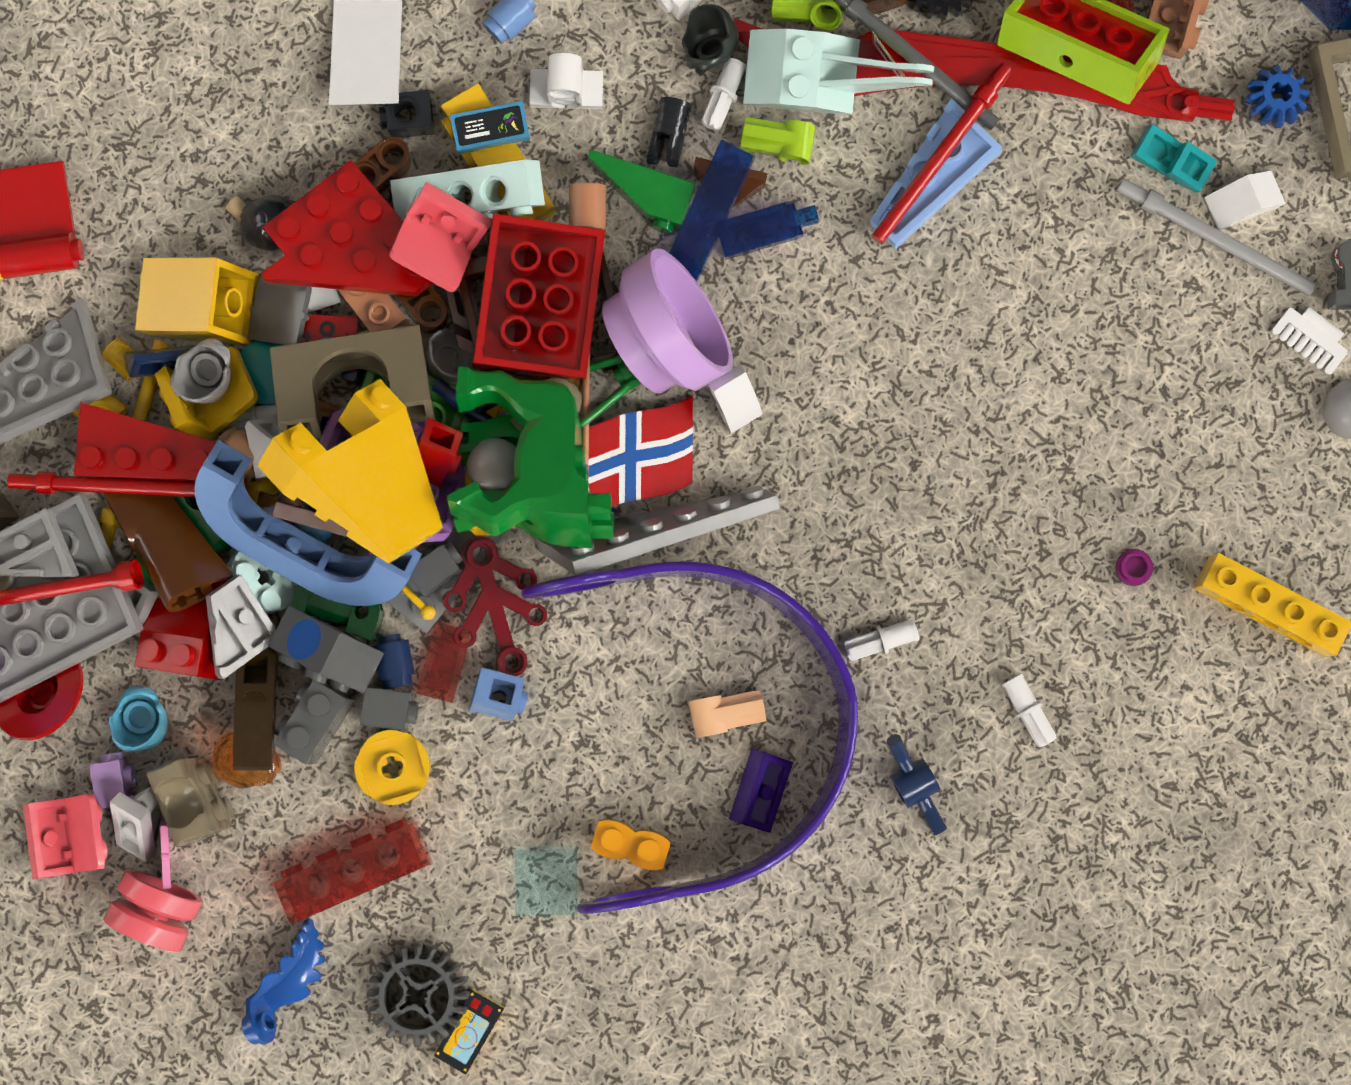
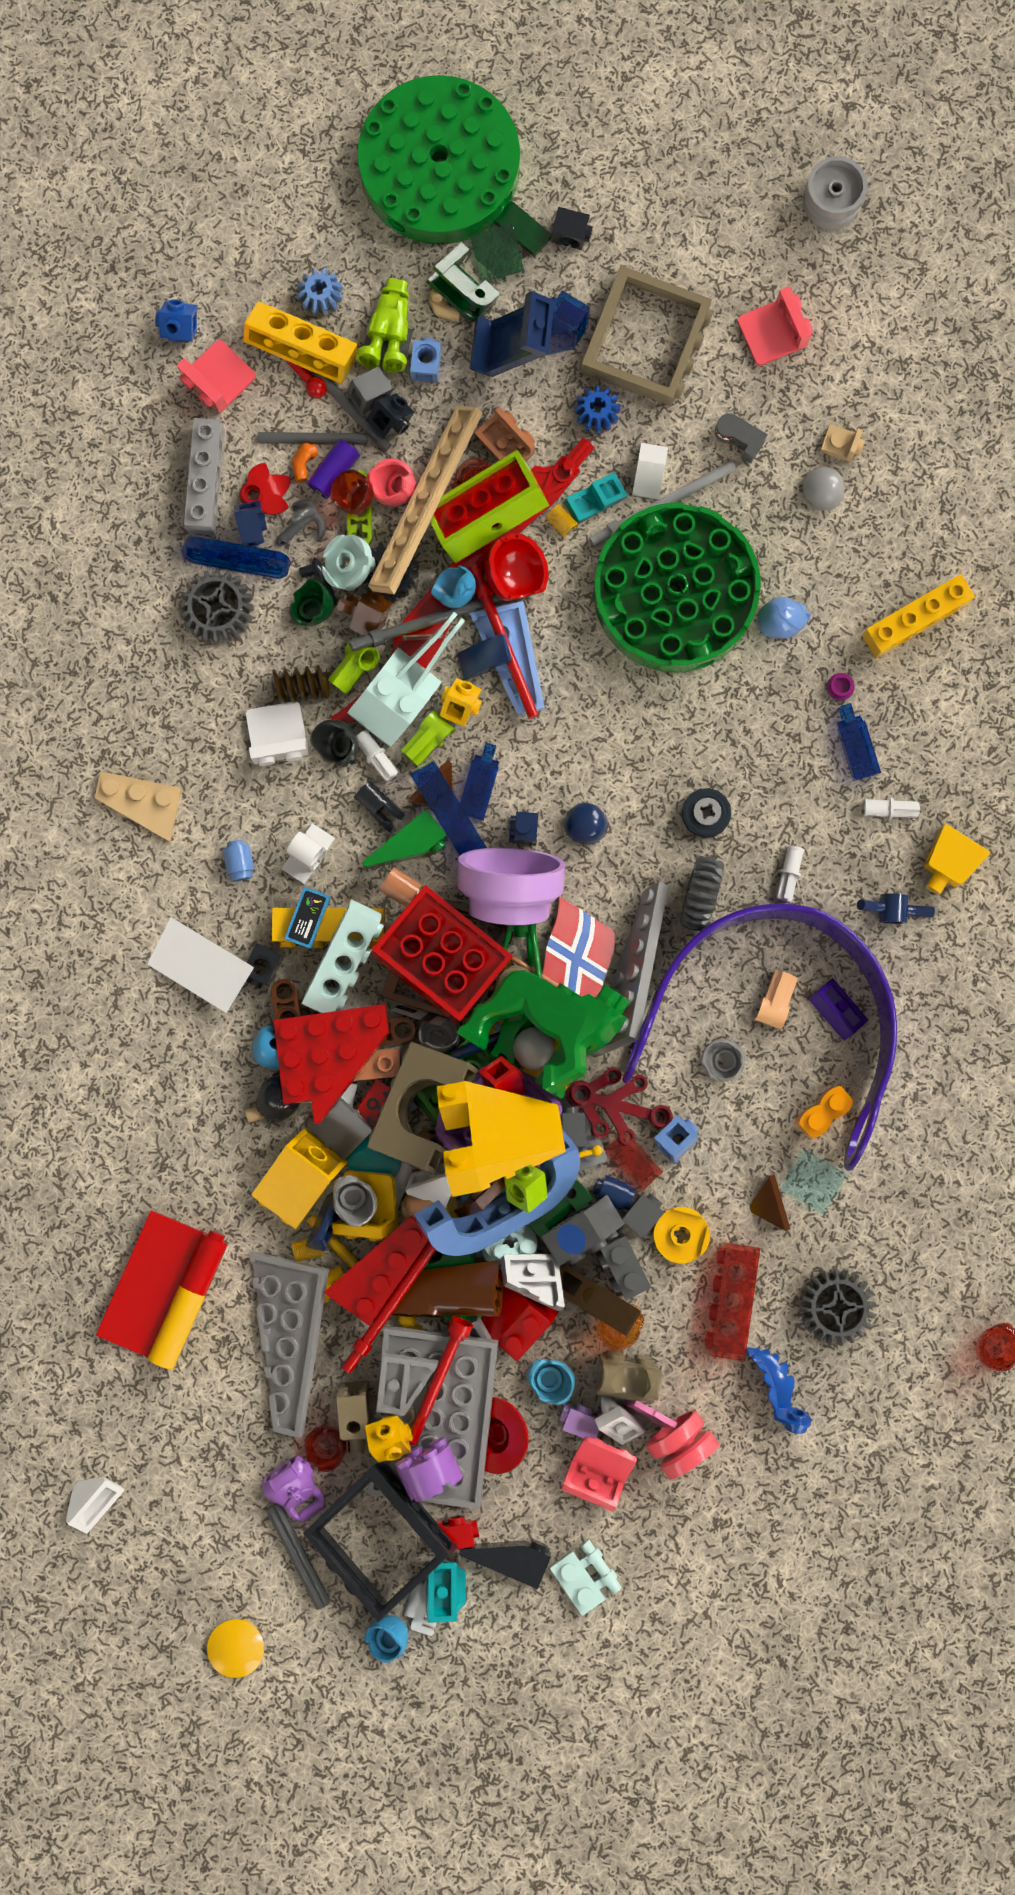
camera: 55 degrees left, 0 degrees up
(315, 170) = (262, 1049): none -> dark azure hair
(329, 552) = (526, 1188): none -> lime brick
(438, 237) = (363, 994): coral bracket -> none
(467, 1040) = (885, 1294): tile -> none
(486, 845) = (769, 1204): none -> reddish brown slope
(628, 704) = (732, 1059): none -> light grey hair
(735, 399) = (581, 869): white slope -> none
(744, 308) = (523, 828): none -> dark blue brick
(793, 550) = (701, 893): none -> dark grey gear
(794, 375) = (586, 823): none -> dark blue hair
(842, 148) = (460, 702): none -> yellow brick
(881, 515) = (700, 821): none -> black wheel
(912, 143) = (484, 656): none -> dark blue slope
(968, 60) = (454, 587): none -> dark azure hair
(1014, 816) = (952, 859): none -> yellow torso
(1034, 115) = (516, 568): none -> red cylinder
(1078, 626) = (857, 744): none -> clear blue hinge
(1135, 127) = (565, 514): none -> yellow piece
(1171, 453) = (782, 618): none -> medium blue hair
(1182, 297) = (666, 626): none -> green brick
(1318, 331) = (763, 478): white piece -> none

